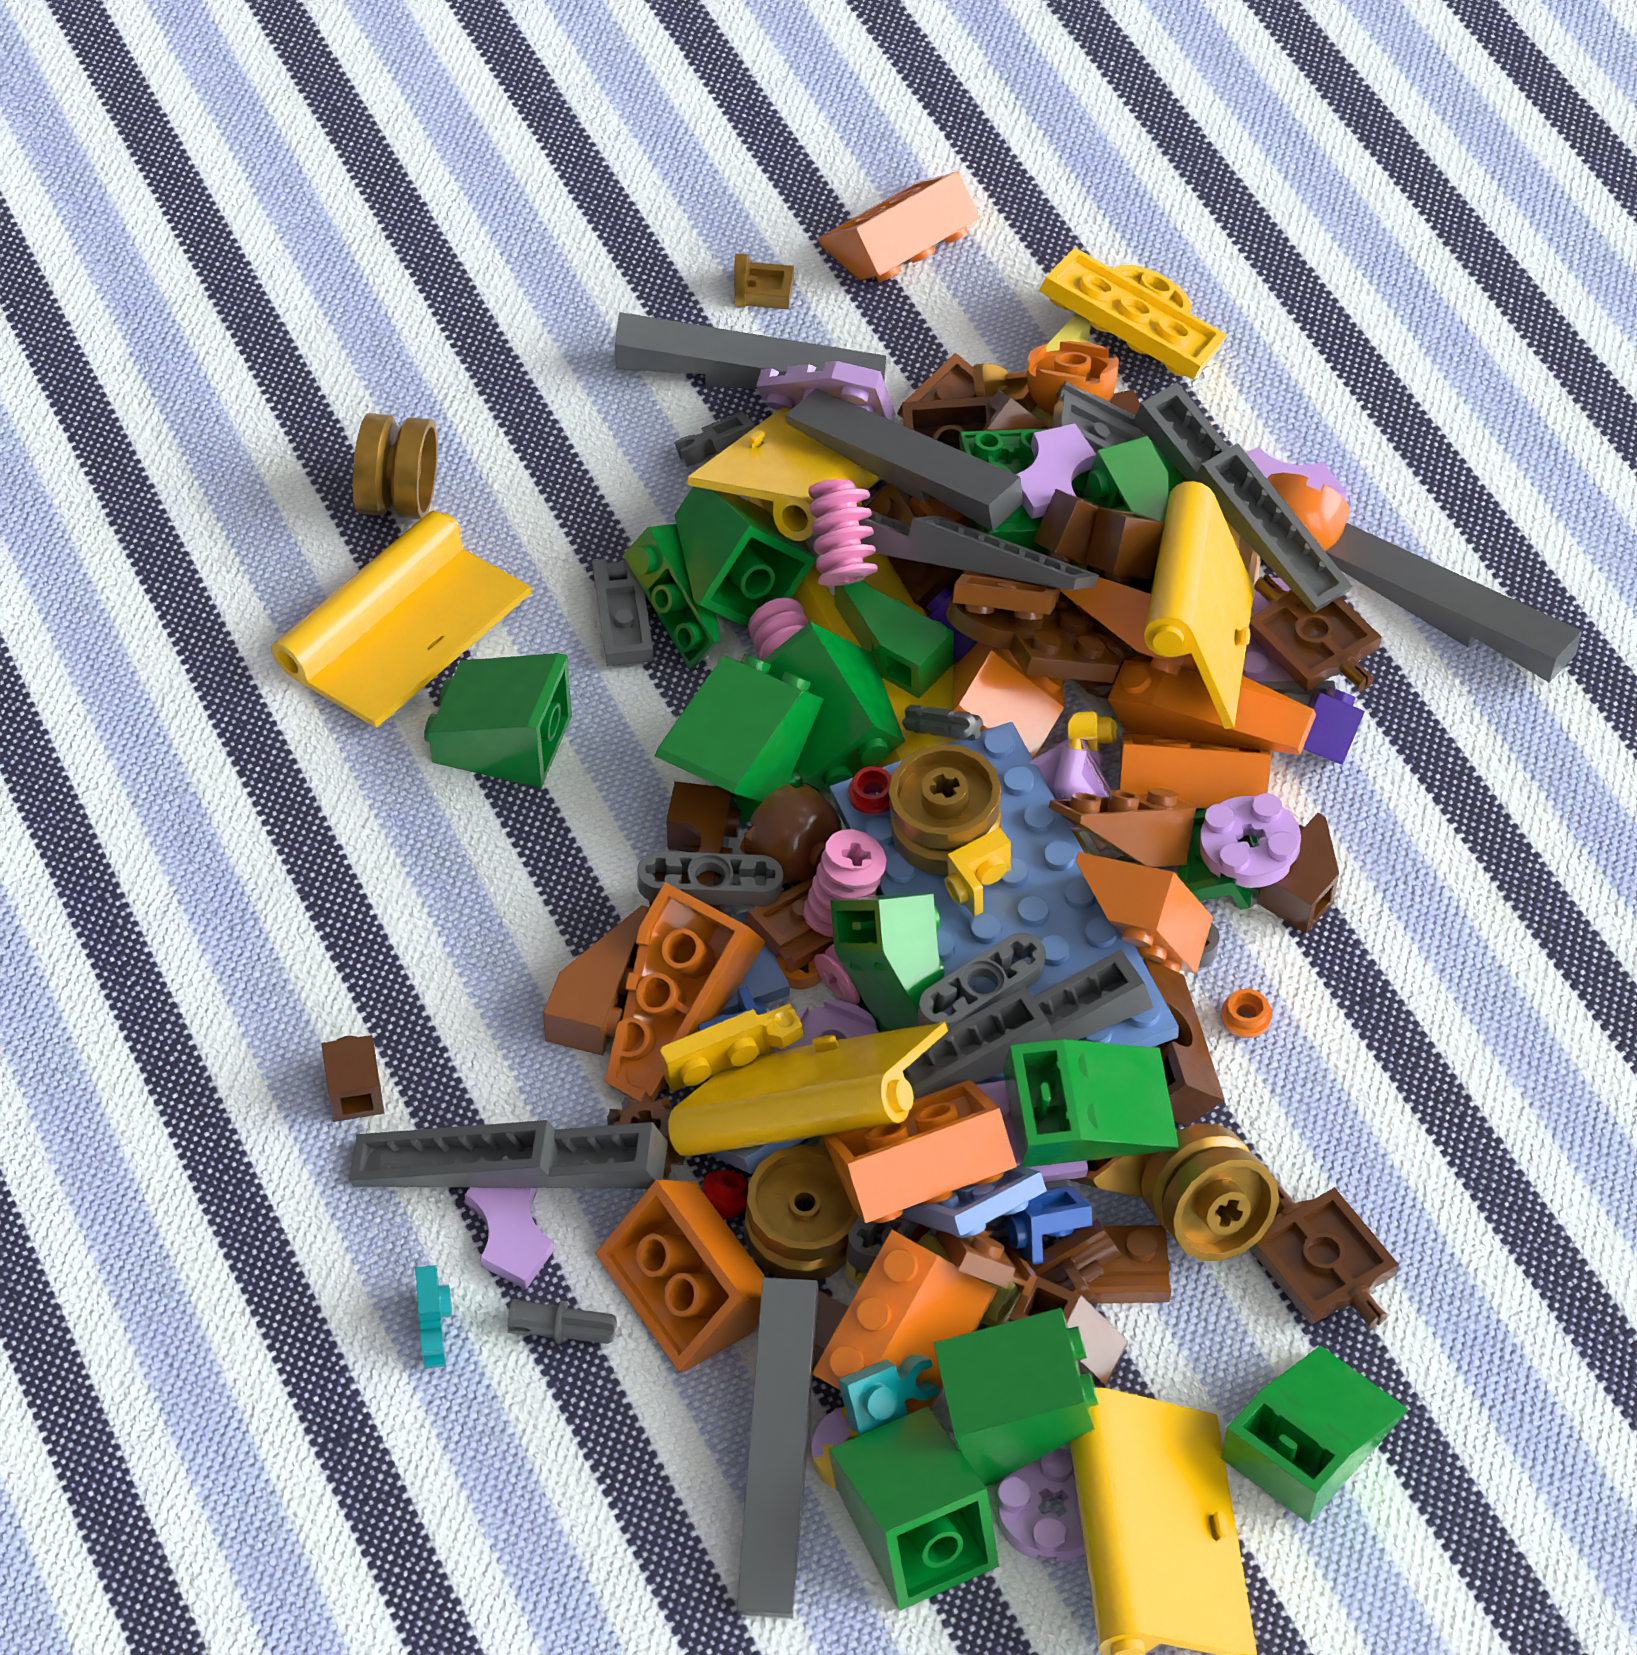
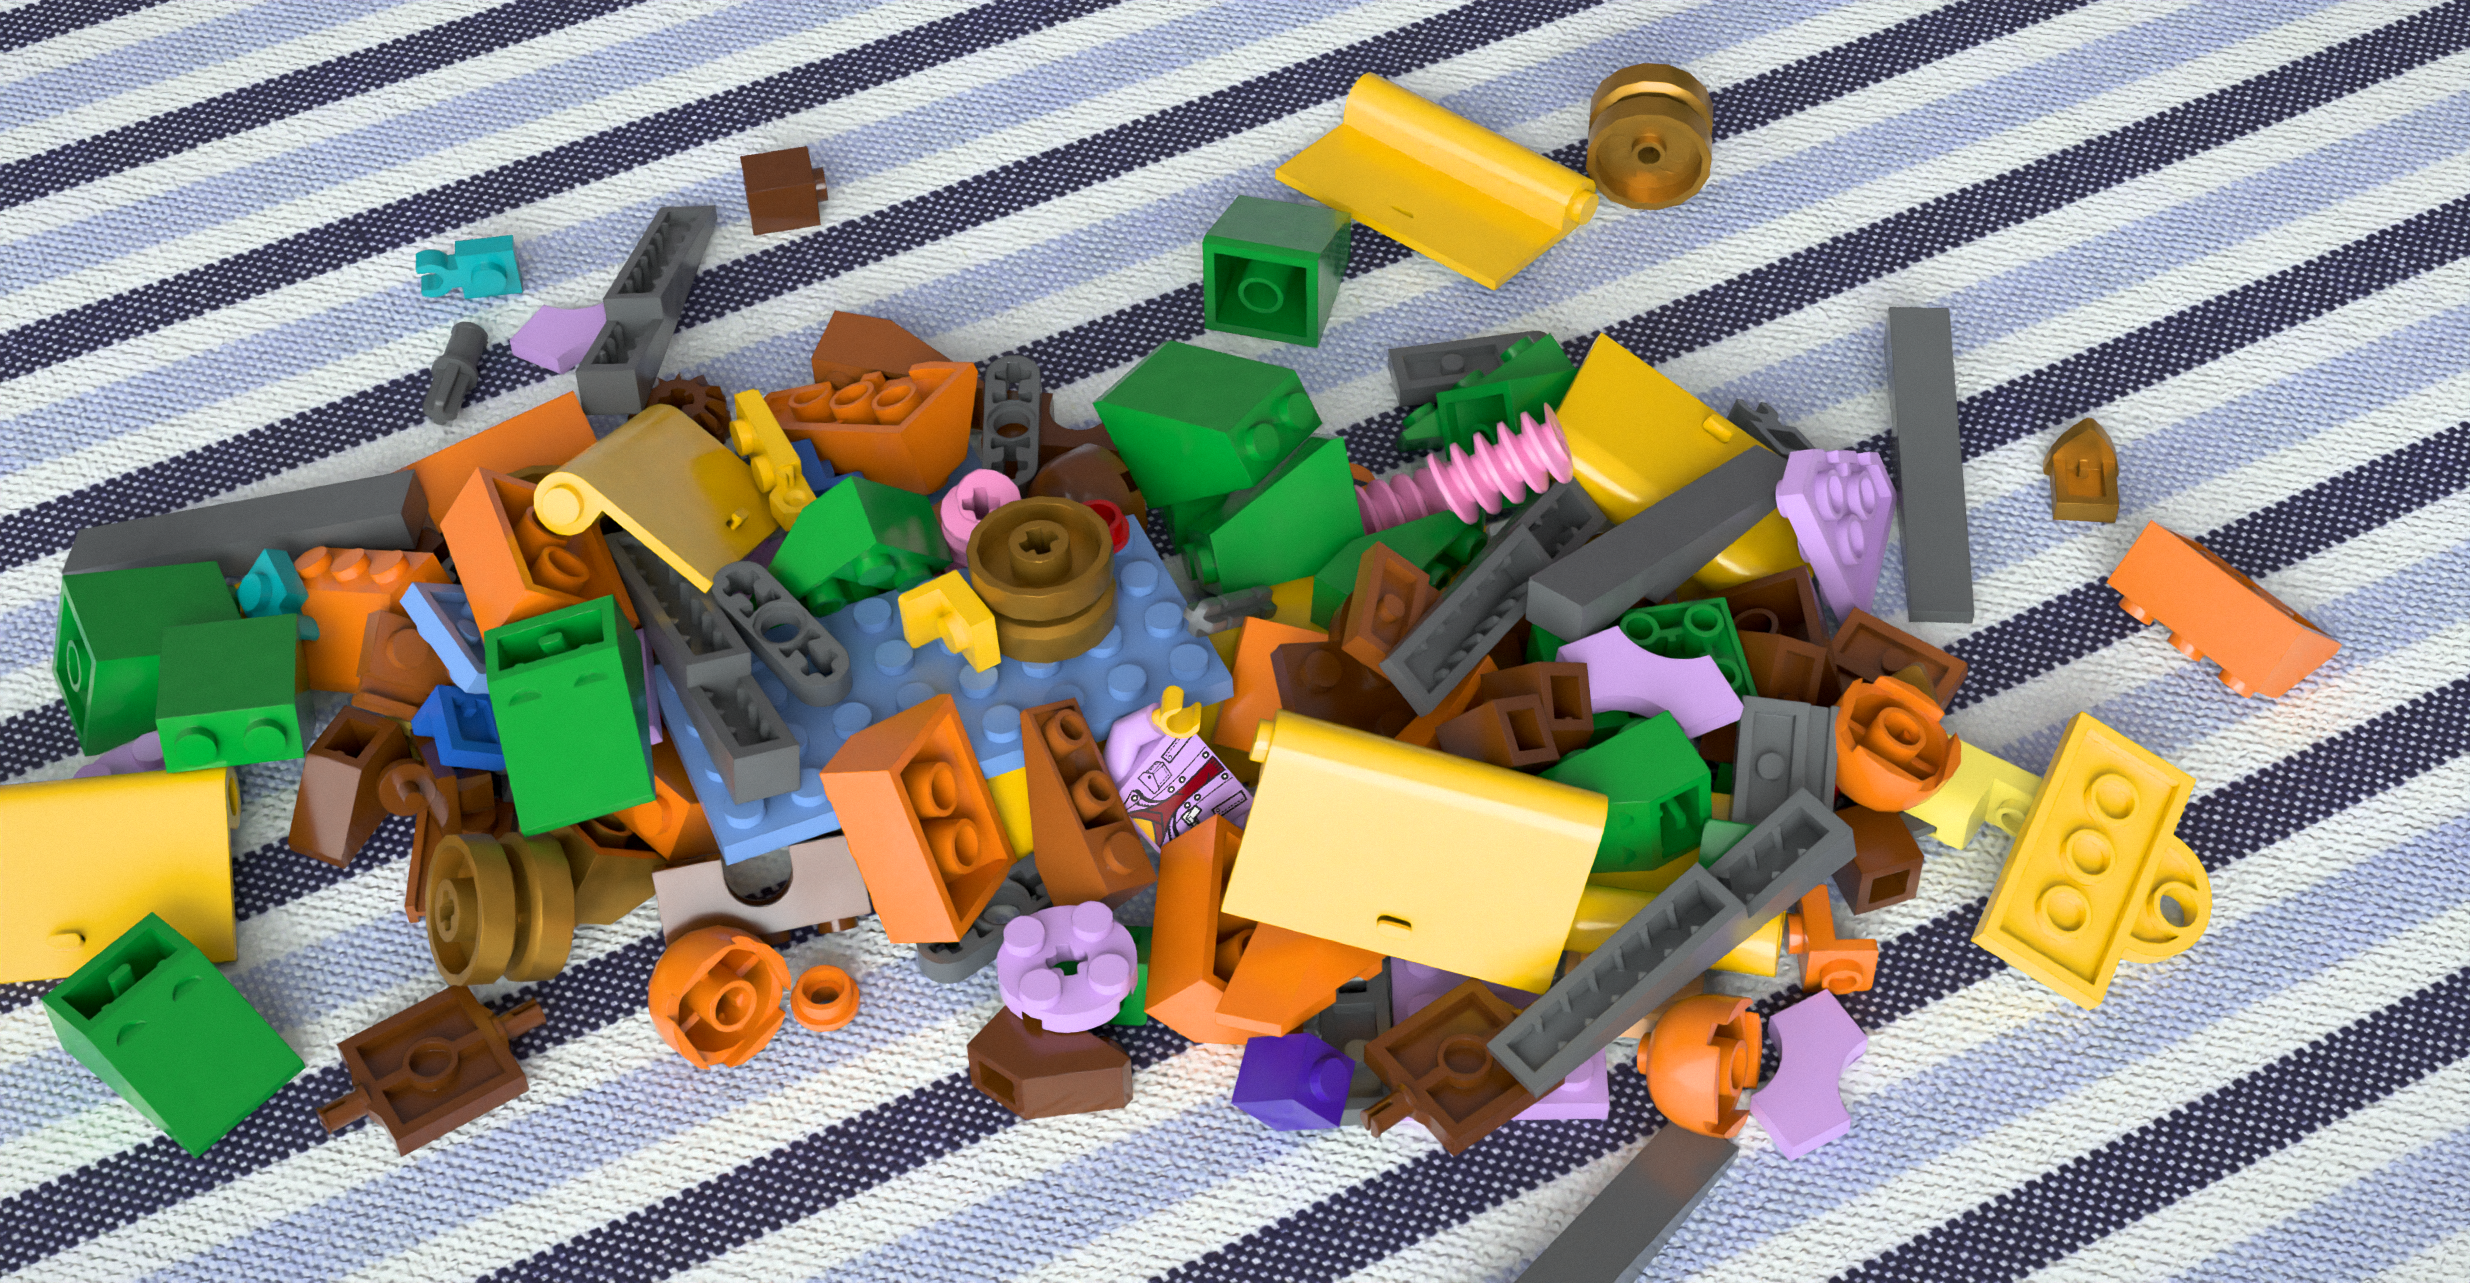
camera: 90 degrees right, 5 degrees down
(1266, 1063) = (718, 995): none -> orange cylinder

